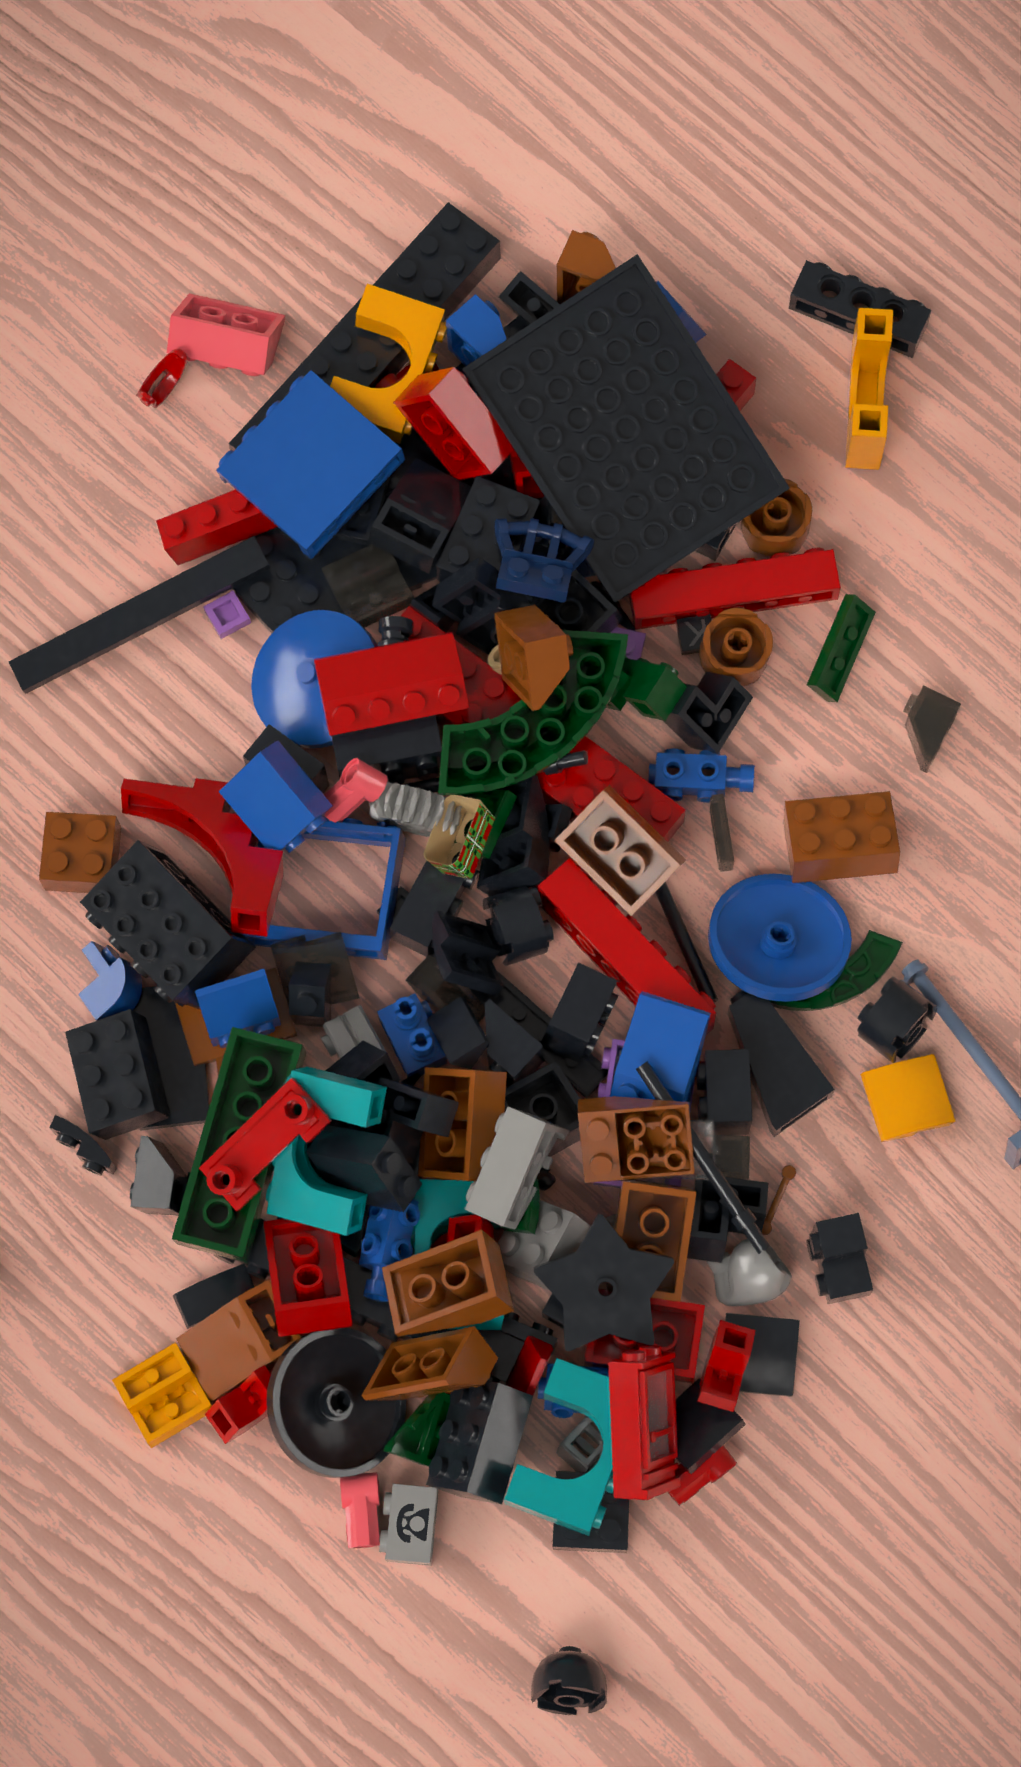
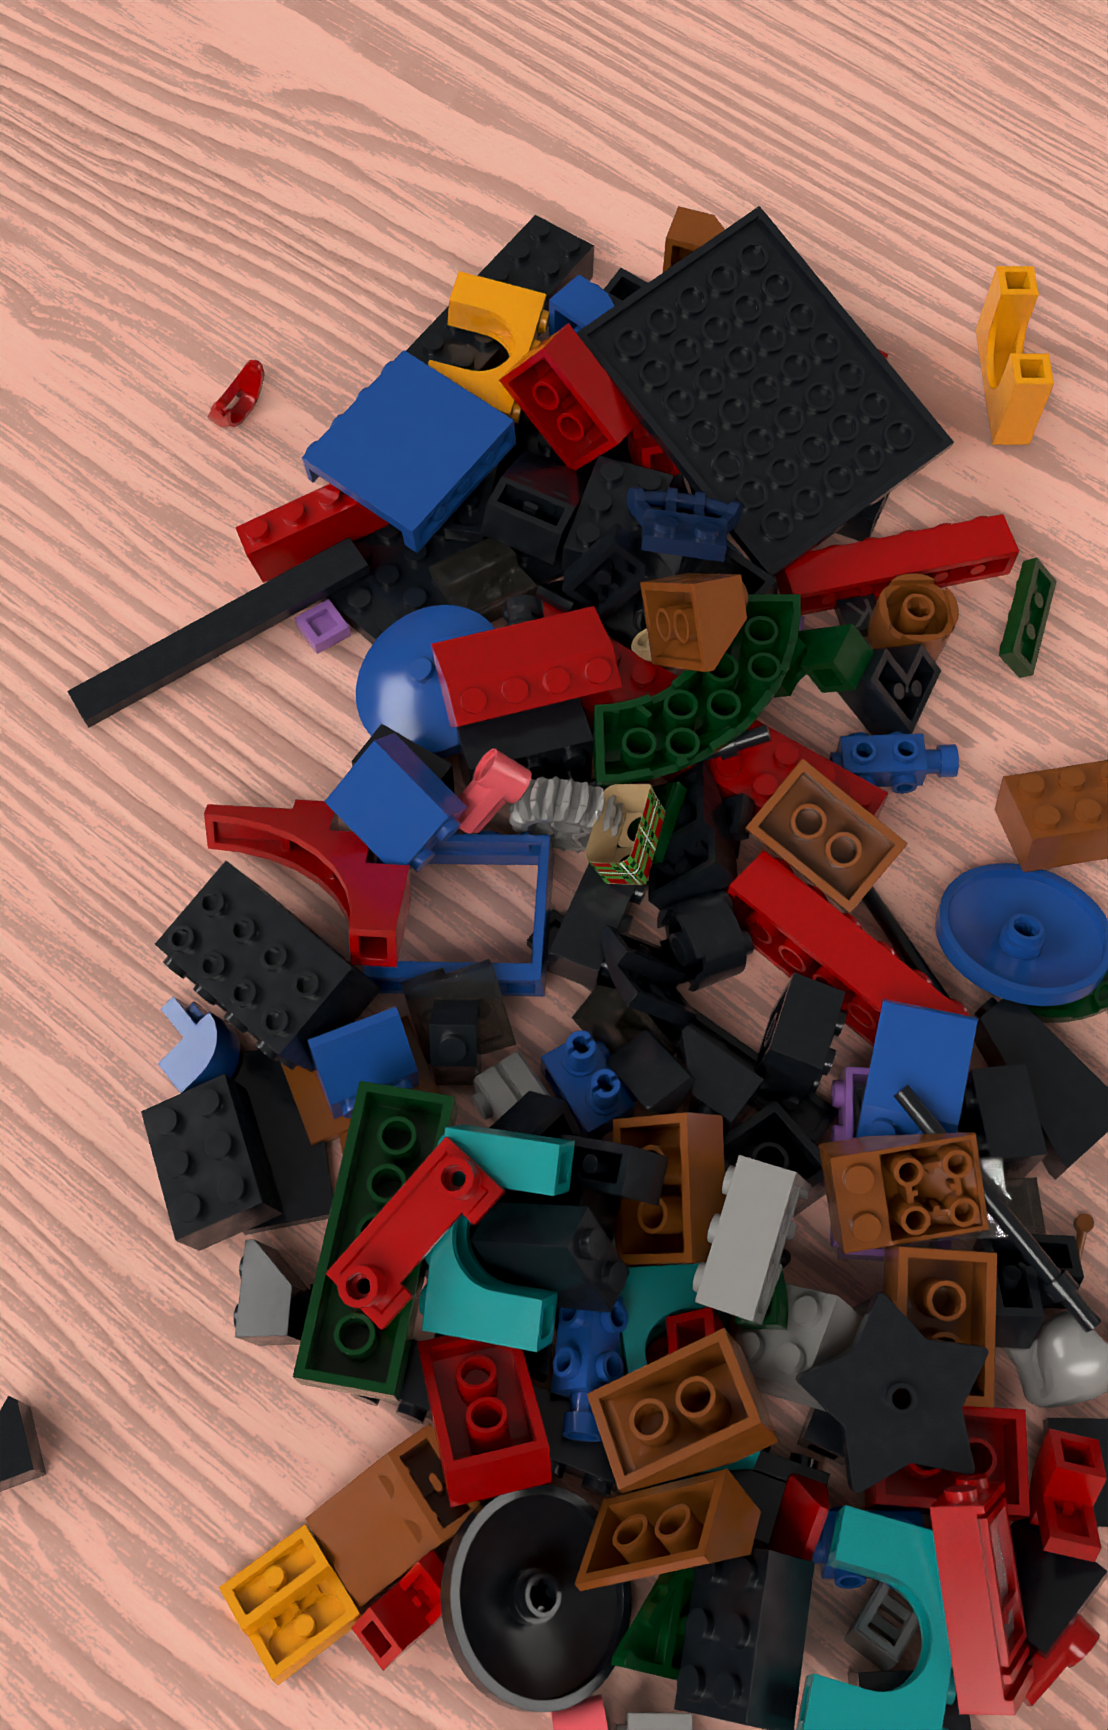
camera: 10 degrees left, 10 degrees down
(78, 850) = (150, 890): dark orange brick -> none
(89, 1152) = (177, 1267): black slope -> none
(211, 1294) = (351, 1451): black slope -> none
(225, 334) = (305, 355): coral slope -> none
(721, 833) = (929, 822): clear smoke tile -> none
(788, 533) = (935, 493): dark orange brick -> none
(840, 312) = (960, 289): black brick -> none

